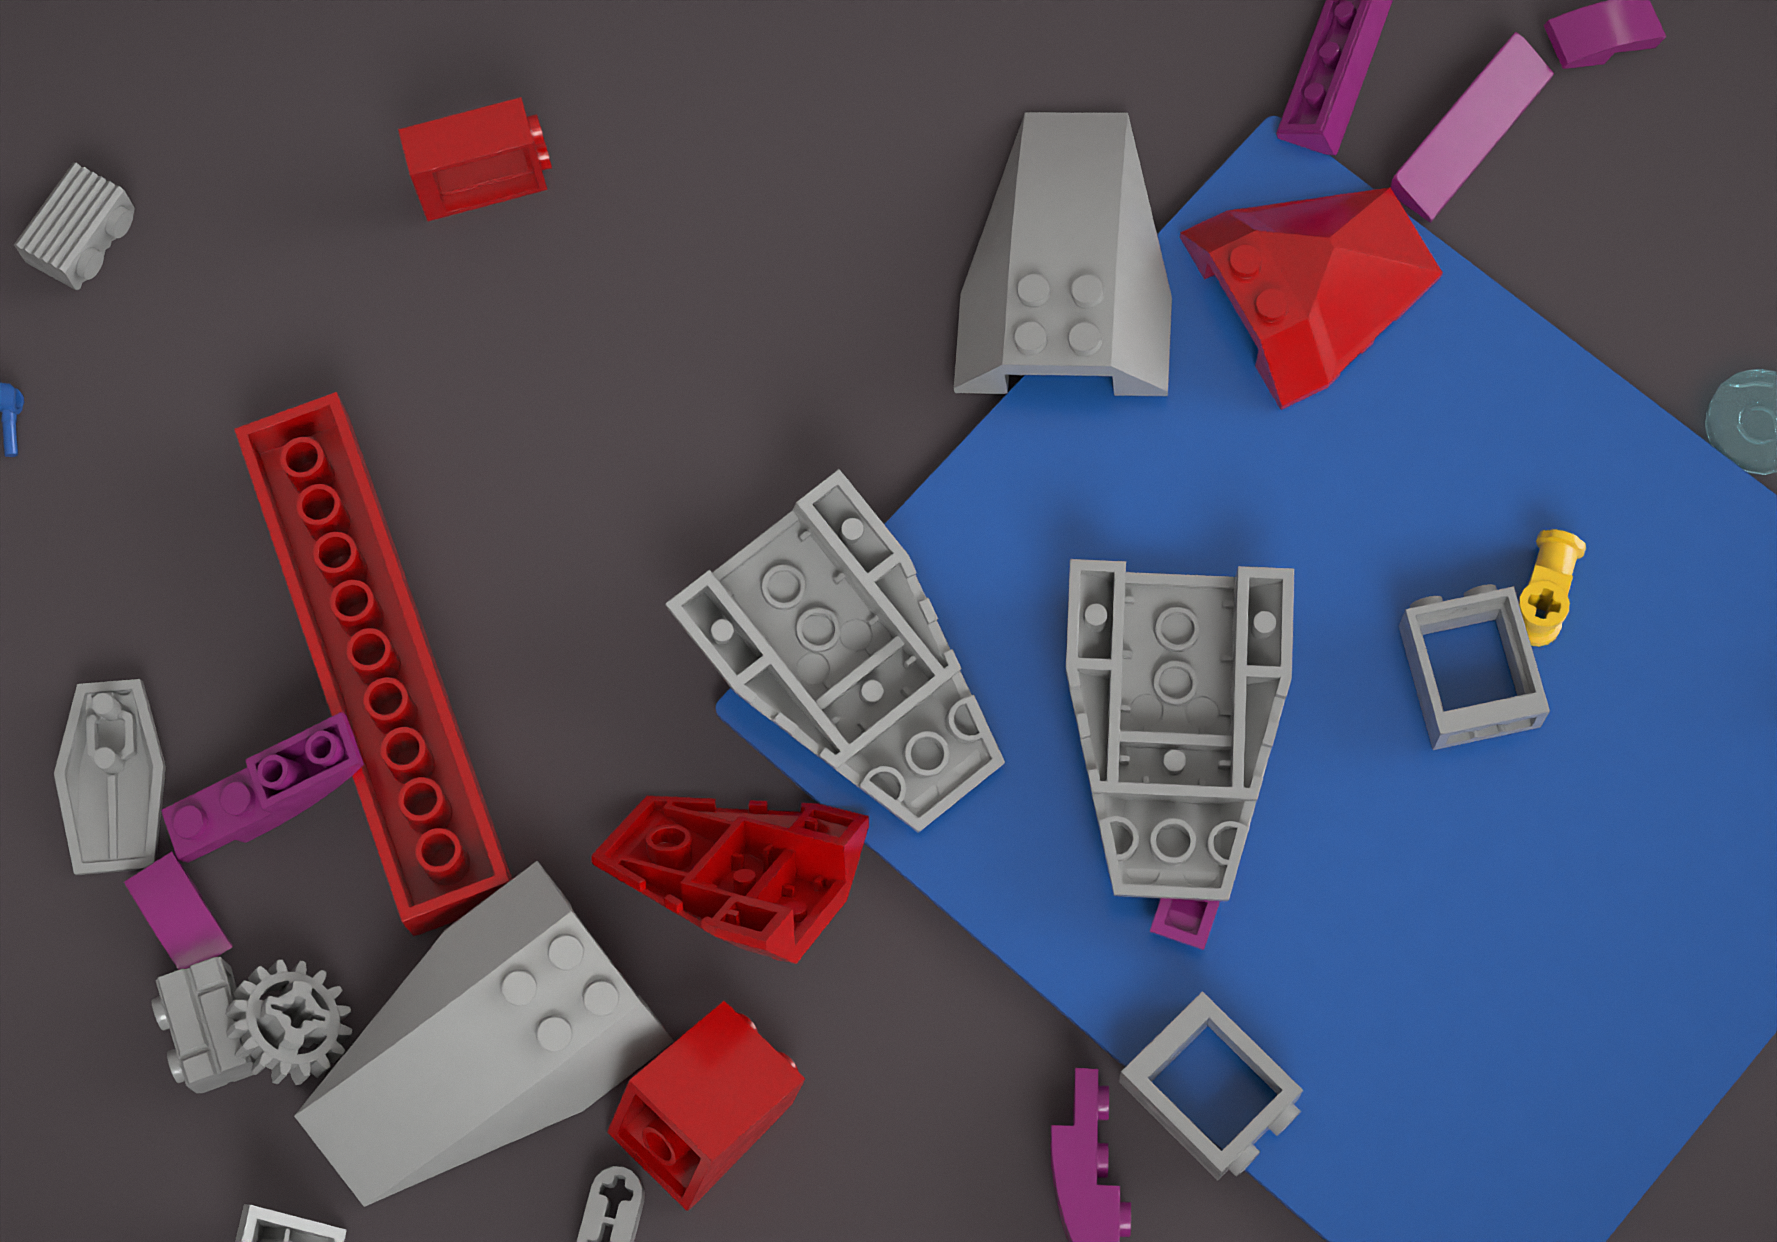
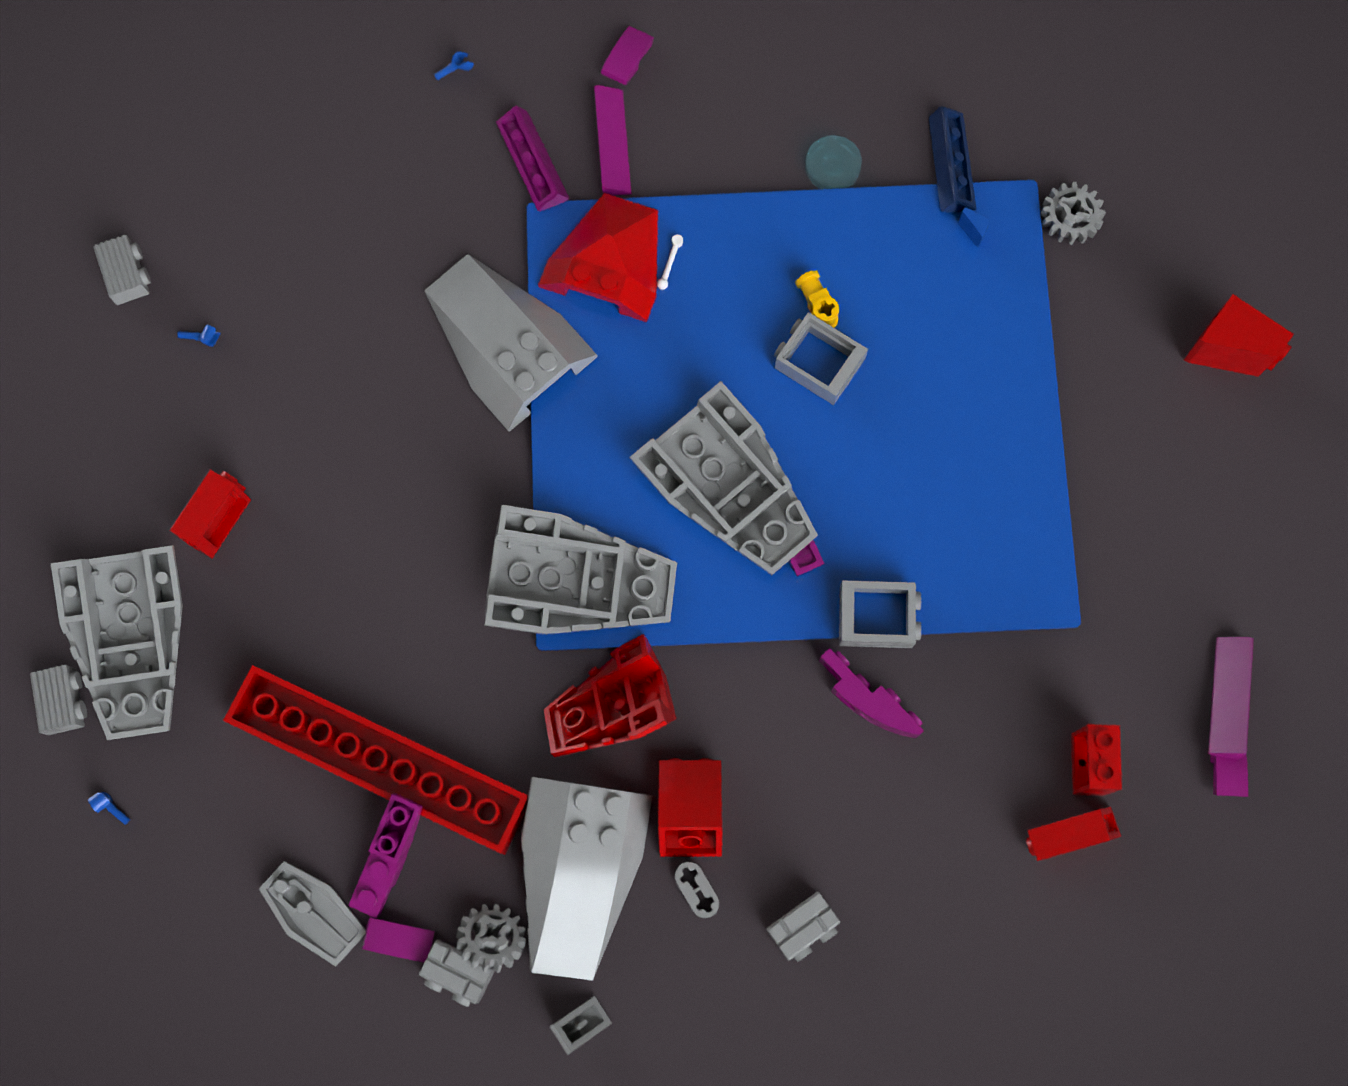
camera: 45 degrees left, 5 degrees up
(226, 216) = (124, 634): none -> light grey wedge
(1428, 338) = (677, 241): none -> white hinge

